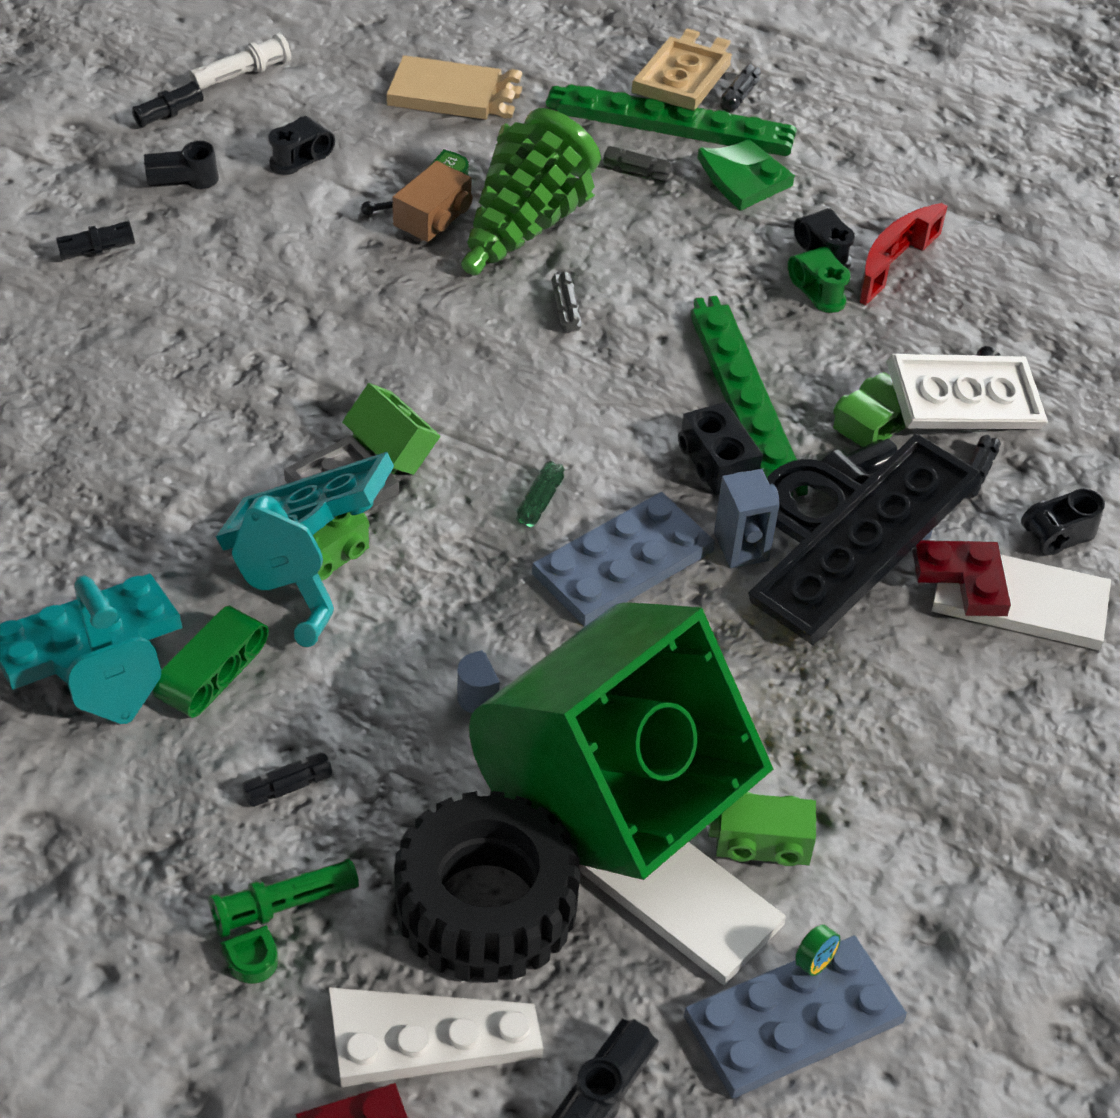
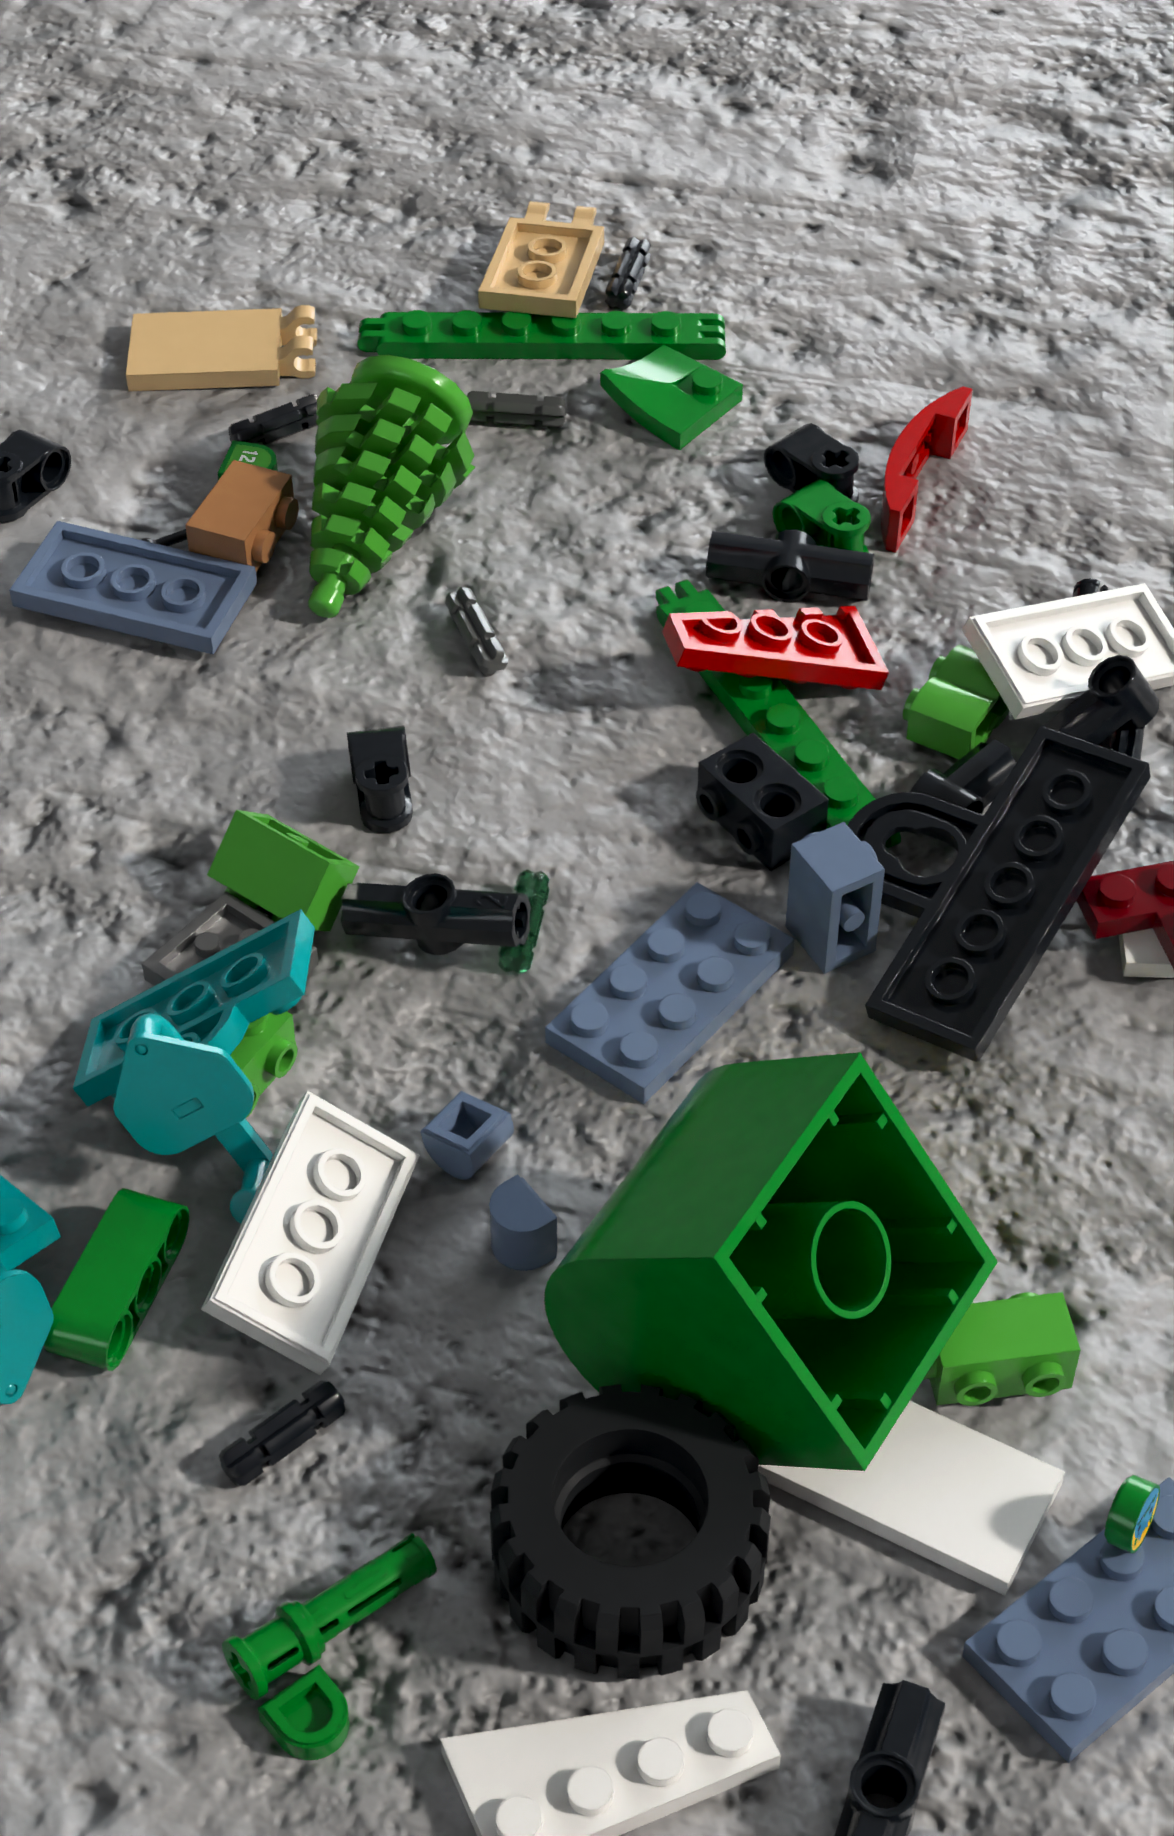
camera: 10 degrees left, 0 degrees up
(341, 659) = (311, 1233): none -> white tile
(351, 231) = (134, 587): none -> sand blue plate
(460, 620) = (466, 1135): none -> sand blue brick
(472, 143) = (276, 422): none -> black axle
(475, 383) = (381, 776): none -> black piece
(482, 476) = (436, 914): none -> black piece
(772, 353) = (790, 648): none -> red wing
(788, 299) = (789, 565): none -> black piece
(978, 428) = (1115, 700): none -> black piece

